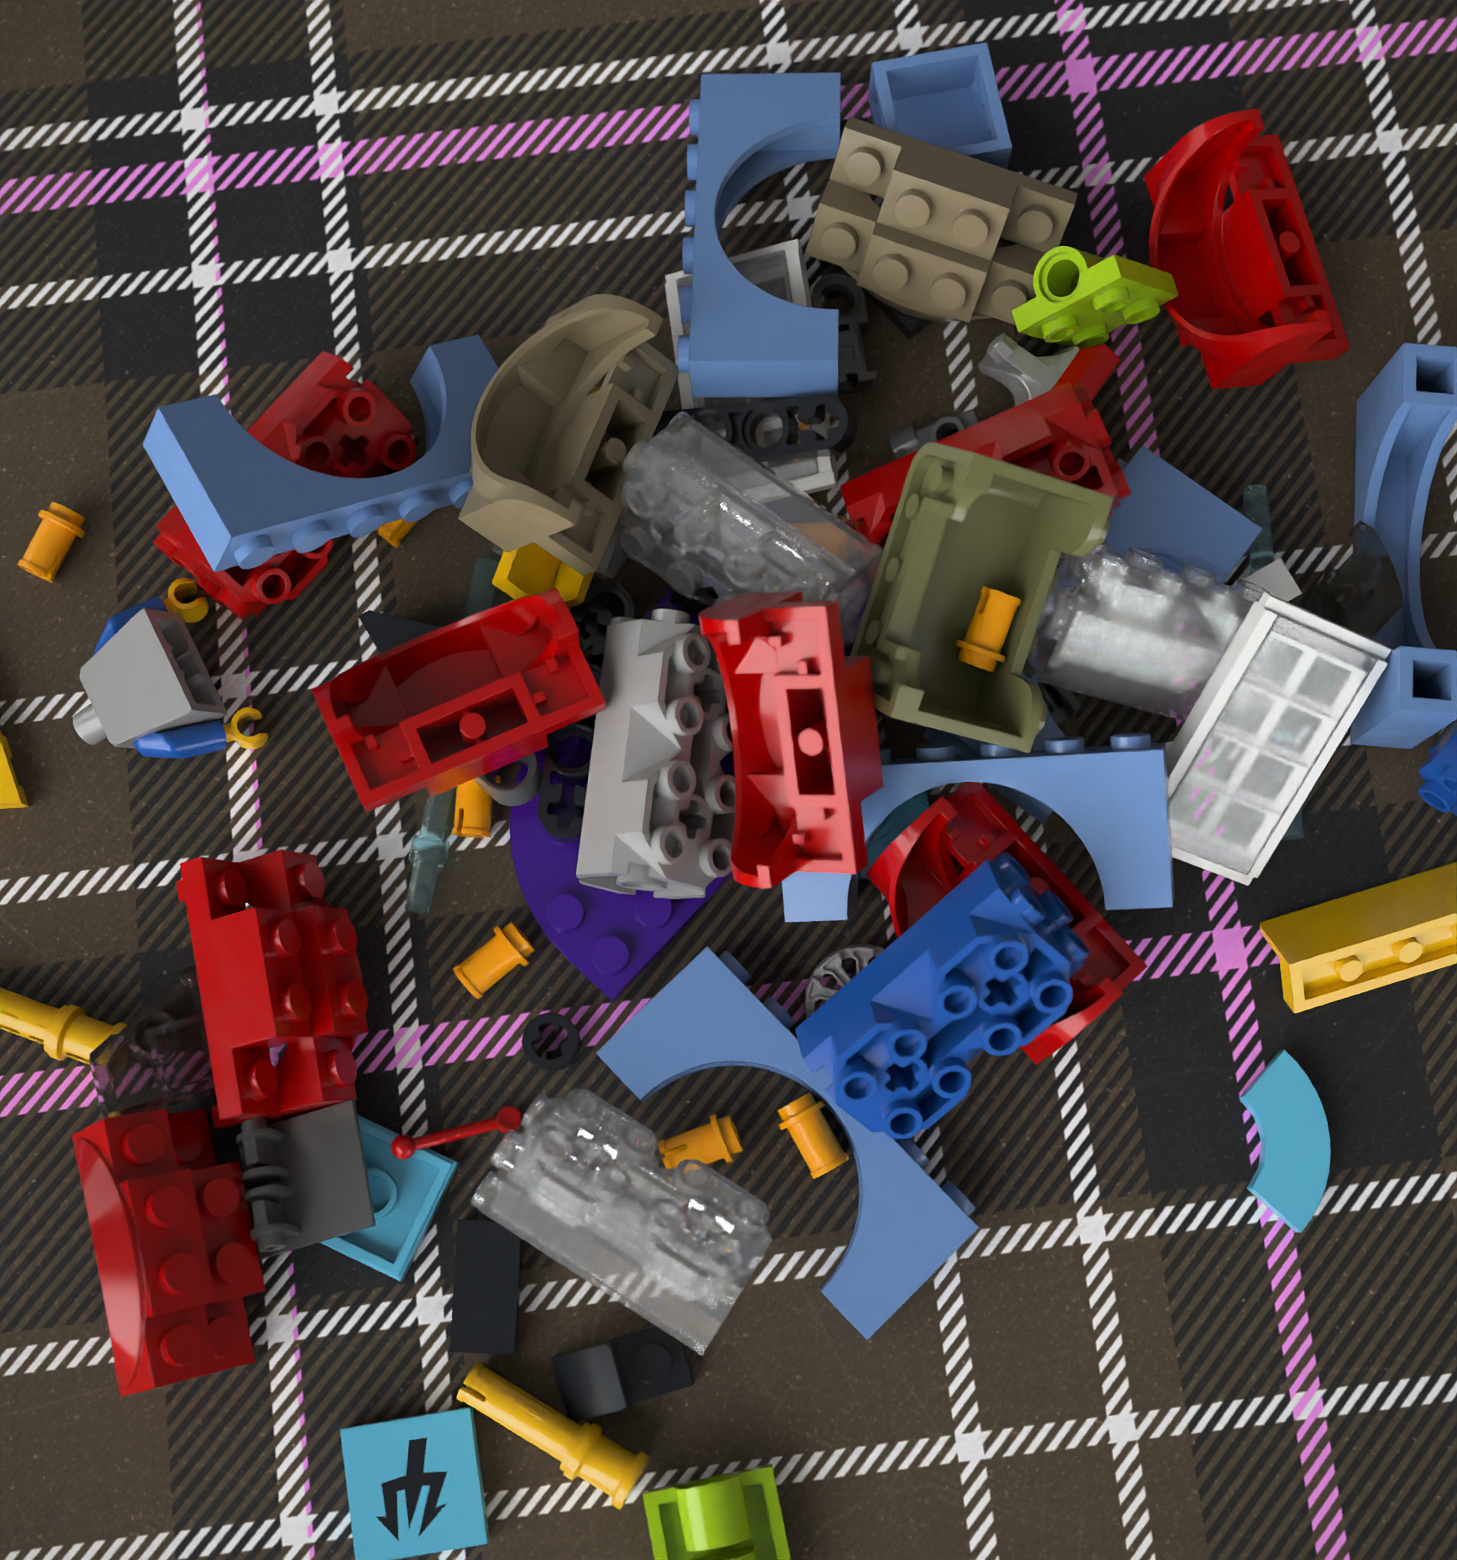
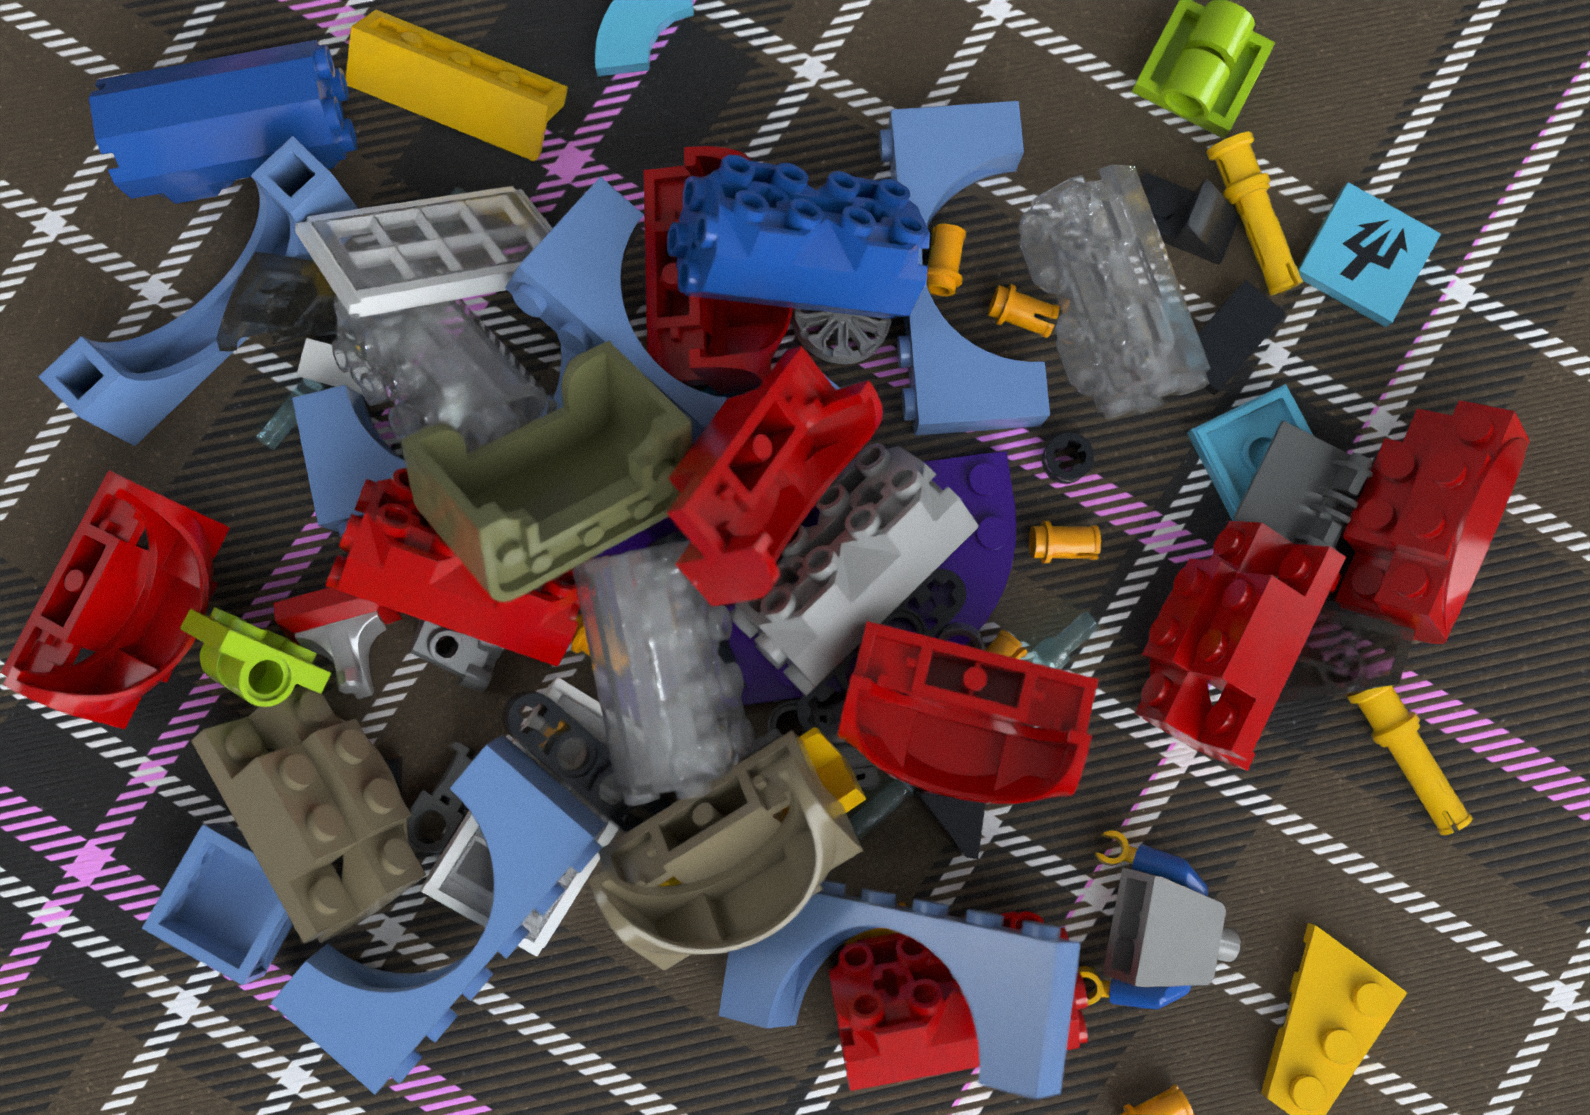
camera: 150 degrees left, 5 degrees up
(507, 1119) = (1135, 433): red hinge -> none
(988, 629) = (558, 454): light orange pin -> none

